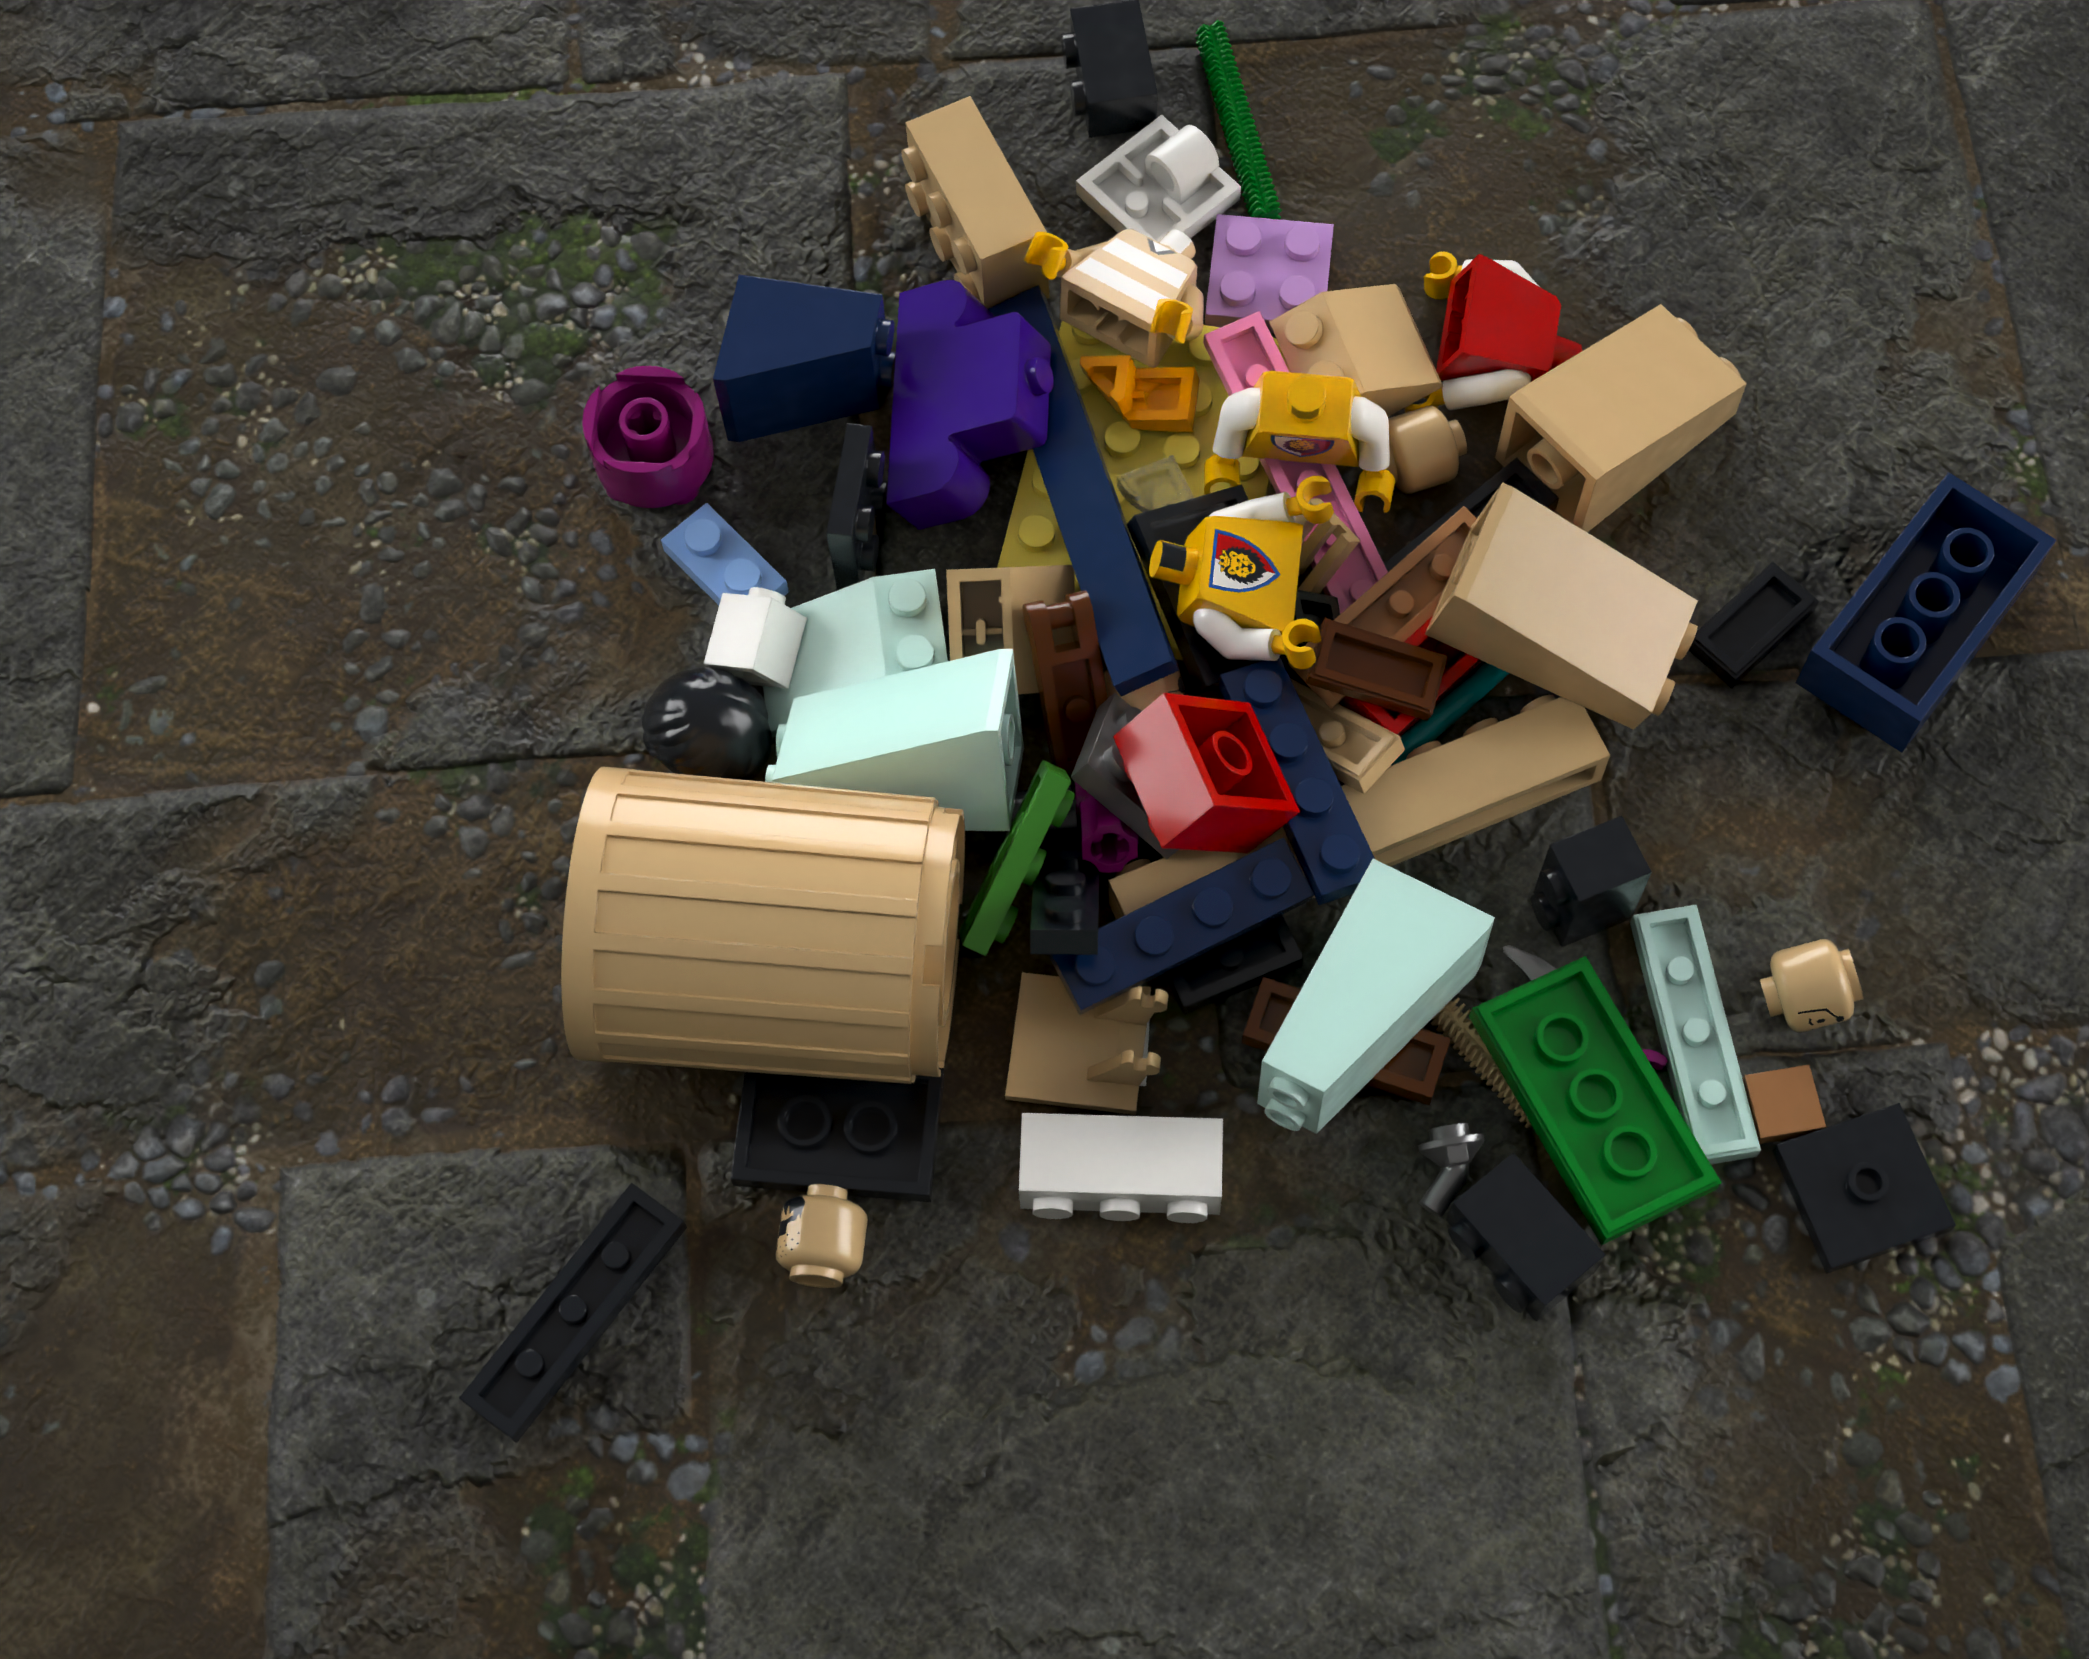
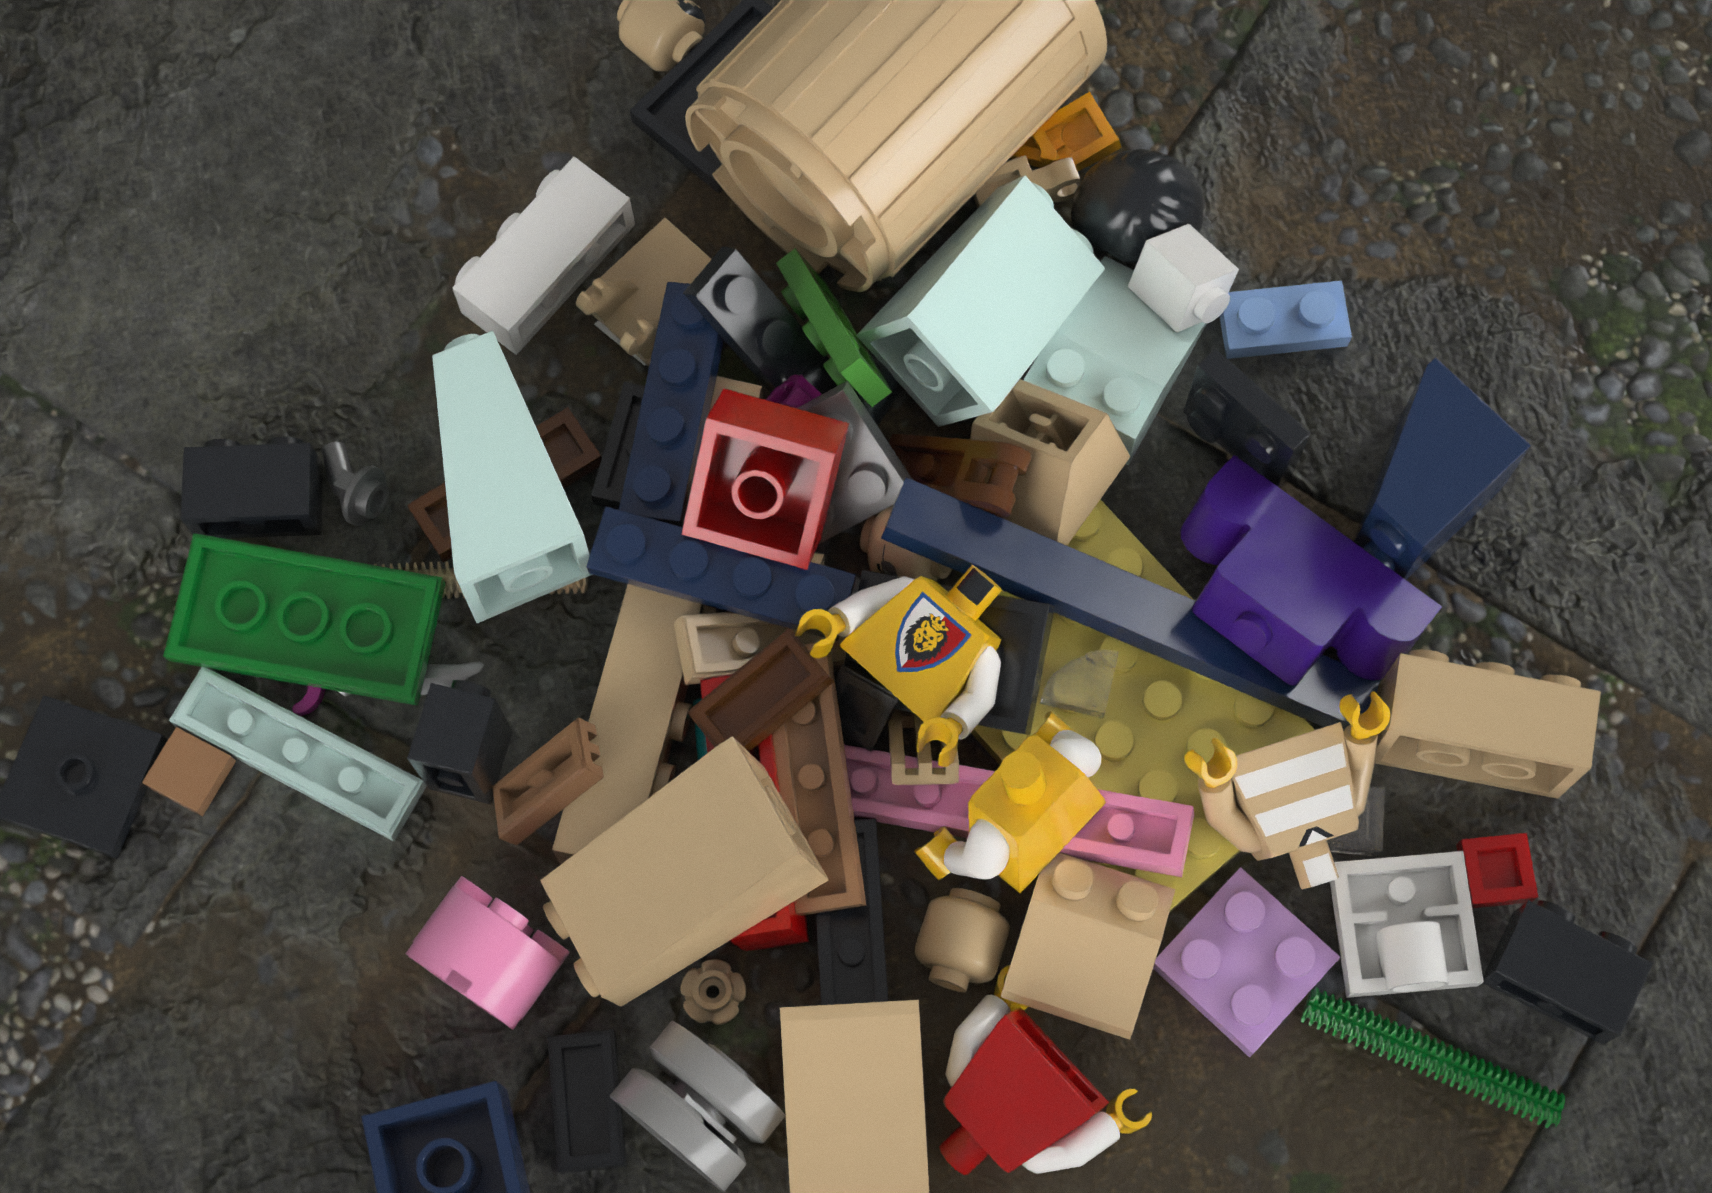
camera: 125 degrees right, 5 degrees up
(648, 438) = (1448, 285): magenta brick -> none
(1066, 156) = (1499, 870): none -> red plate
(1146, 396) = (1162, 745): light orange slope -> none
(1526, 775) = (547, 782): none -> medium nougat tile
(1700, 517) = (692, 1111): none -> light grey wheel
(1727, 742) = (487, 952): none -> bright pink brick
(1812, 985) = (248, 863): tan head -> none

